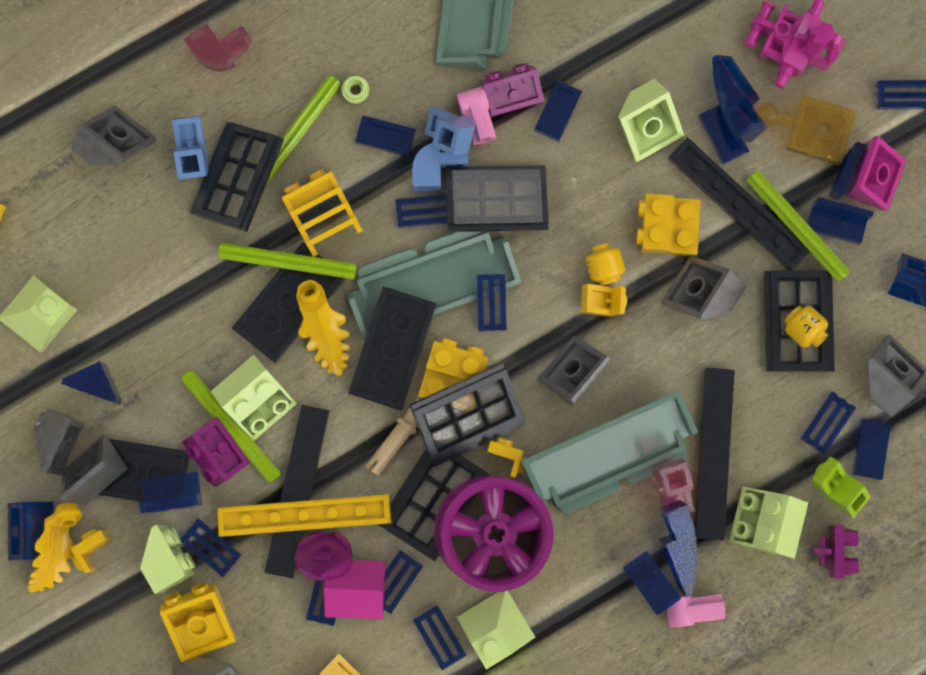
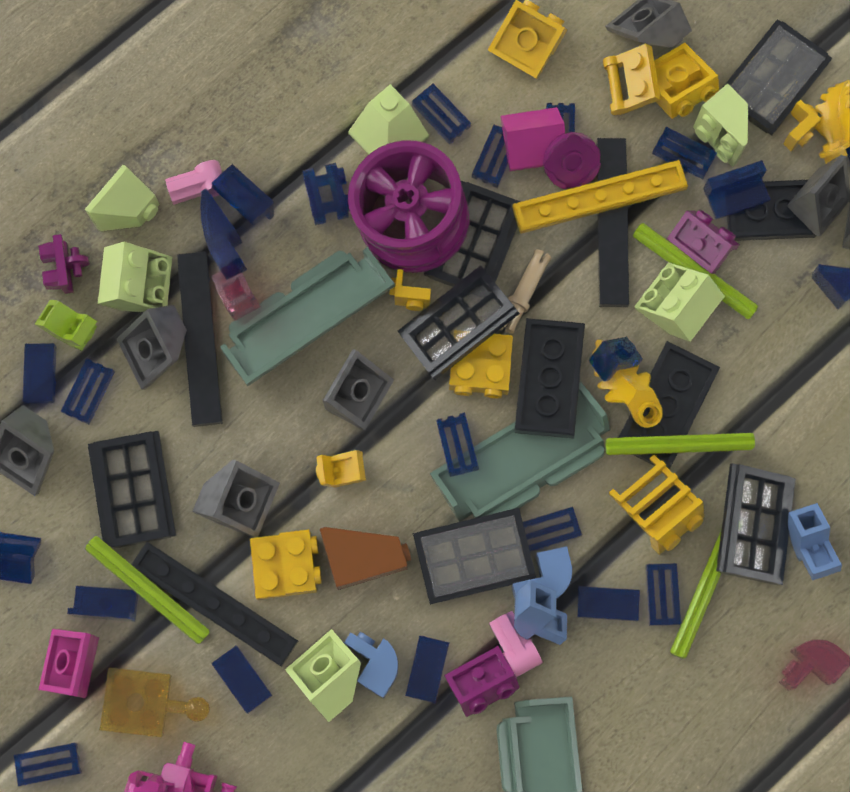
camera: 165 degrees right, 5 degrees down
(101, 610) = (777, 75): none -> clear piece
(236, 628) = (639, 76): none -> yellow plate
(327, 354) = (614, 356): none -> bracket
(331, 157) = (664, 621): none -> clear blue tile
(355, 81) = (662, 646): yellowish green plate -> none
(558, 586) = (335, 179): none -> clear blue brick
(597, 217) = (363, 556): none -> dark orange slope
(598, 122) = (383, 664): none -> medium blue brick
(605, 264) = (345, 507): yellow head -> none
(736, 99) = (234, 717): clear blue slope -> none
(758, 452) = (153, 343): none -> flat silver slope
(768, 600) = (122, 203): none -> yellowish green slope
(806, 326) = (123, 477): yellow head -> none
(847, 171) = (101, 660): clear blue tile -> none

